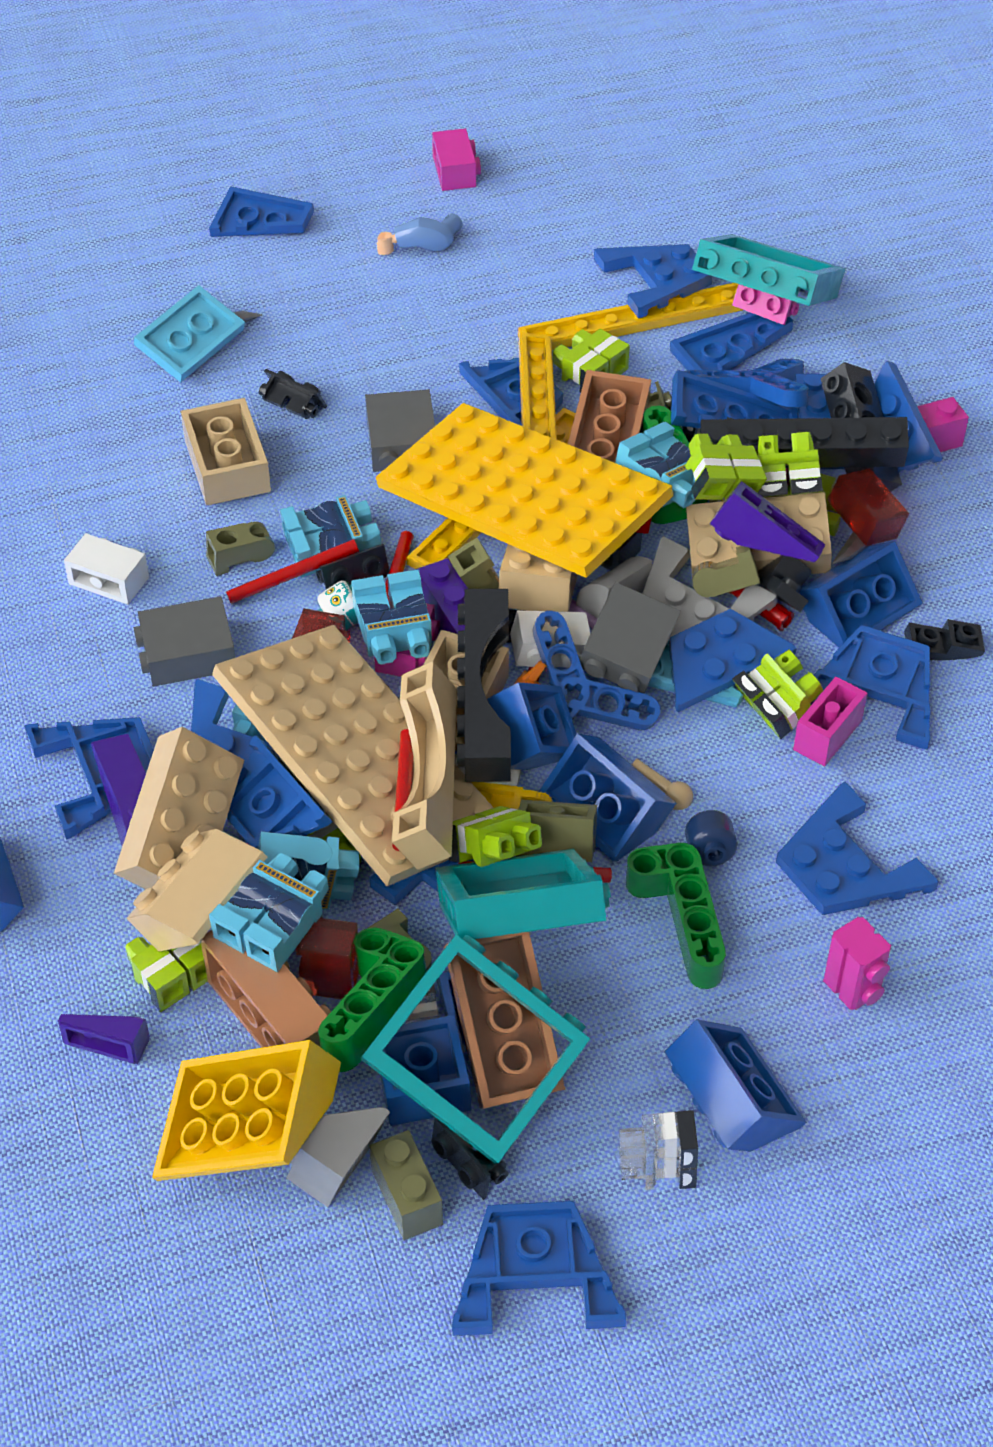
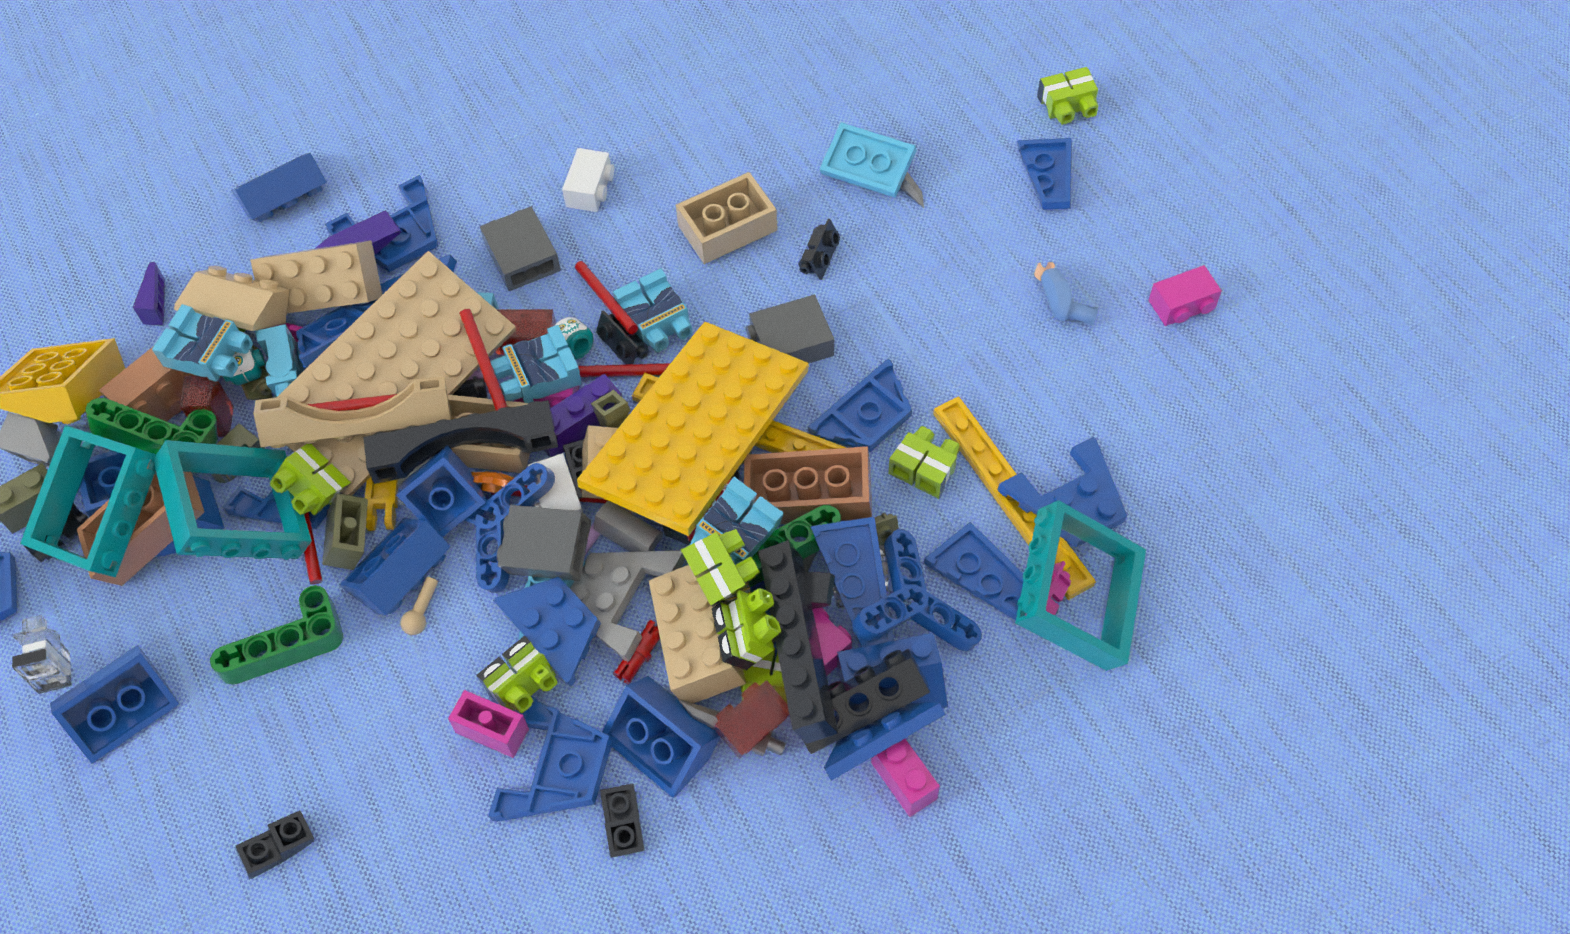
camera: 80 degrees right, 10 degrees up
(170, 179) = (1069, 94): none -> lime hips
(237, 545) = (629, 254): olive leg -> none
(383, 649) = (483, 359): none -> red bar
(537, 384) = (848, 423): yellow tile -> none
(712, 836) = (355, 649): dark blue head -> none
(726, 576) = (635, 606): olive leg -> none
(760, 525) = (664, 623): dark purple slope -> none
(785, 579) = (636, 660): black slope -> none
(835, 869) = (345, 752): blue wing -> none
(857, 964) = (215, 774): dark pink brick -> none
(934, 936) = (276, 845): none -> black slope

